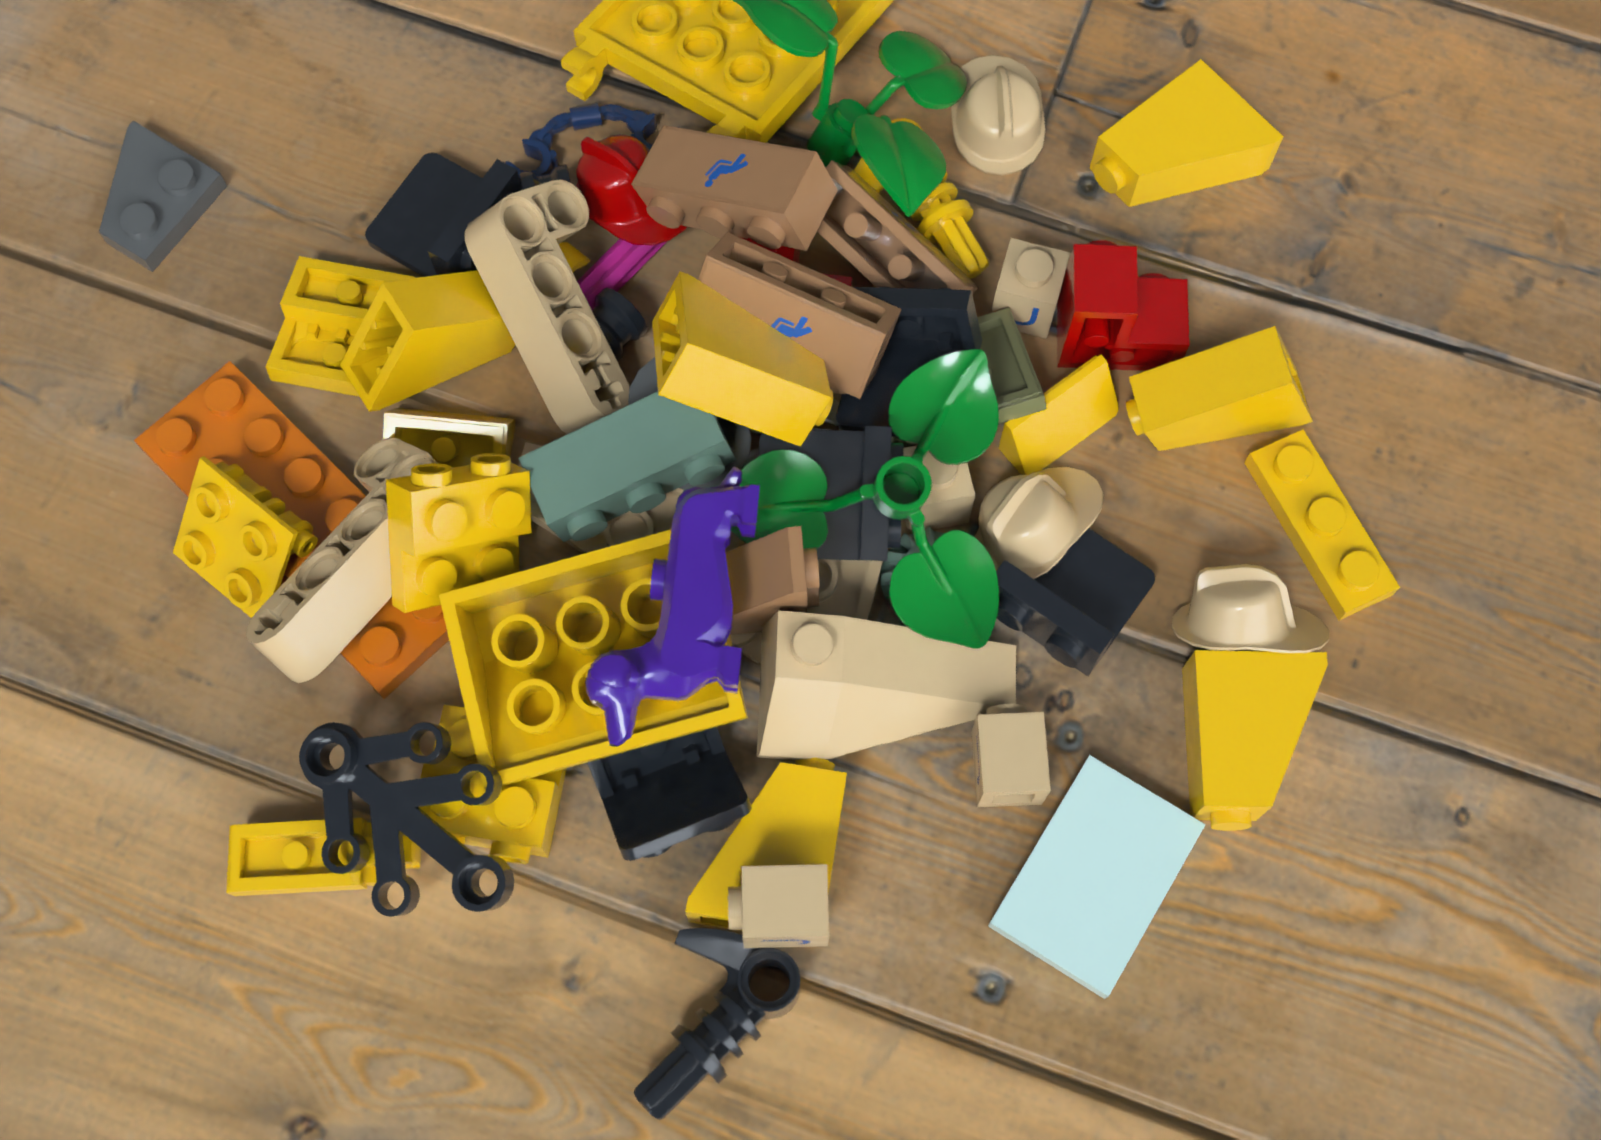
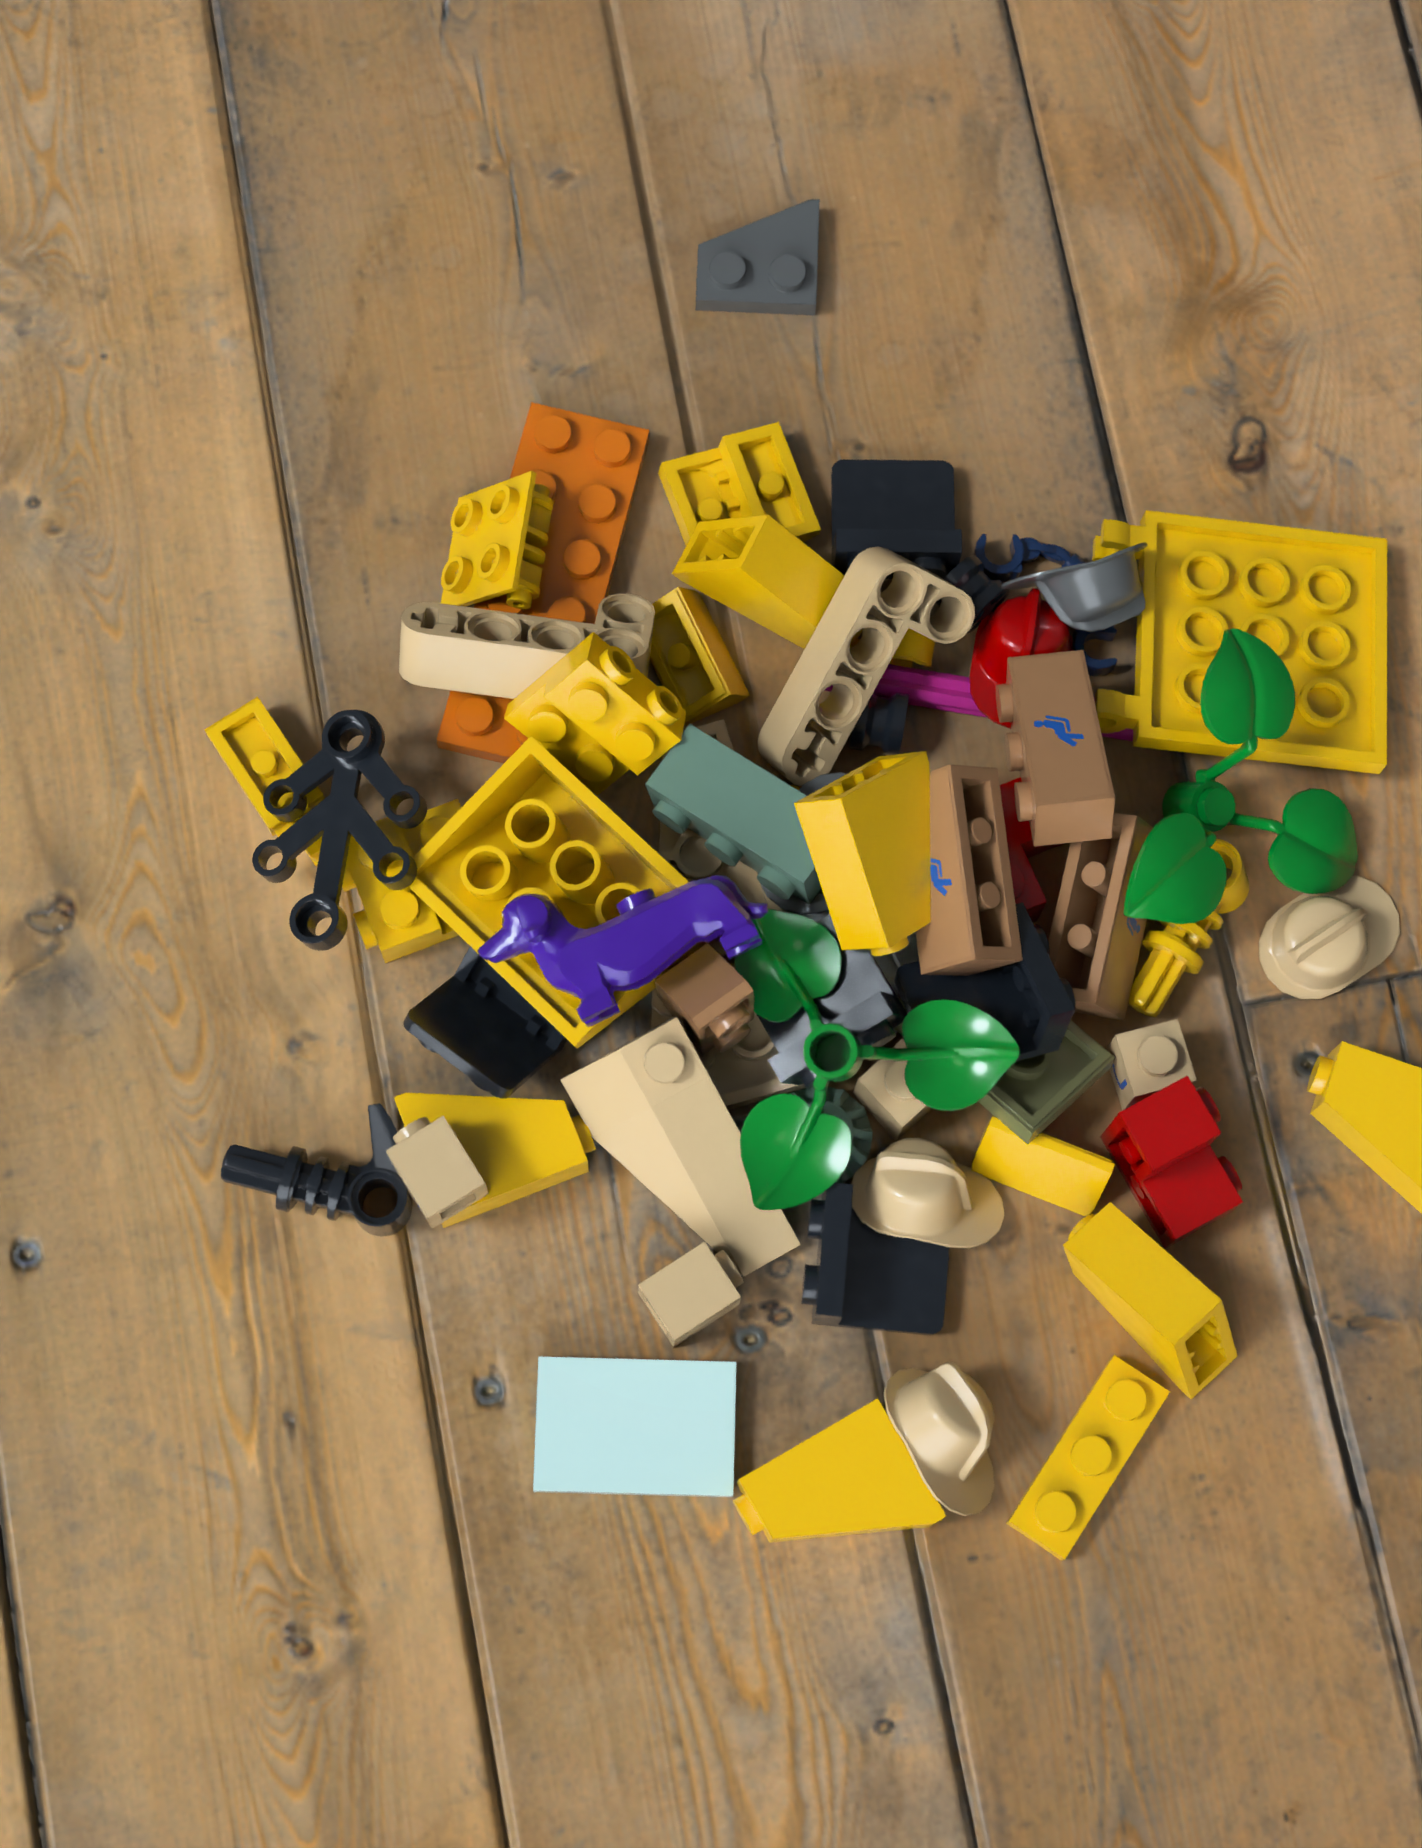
camera: 55 degrees right, 5 degrees up
(617, 99) = (1091, 593): none -> dark grey piece

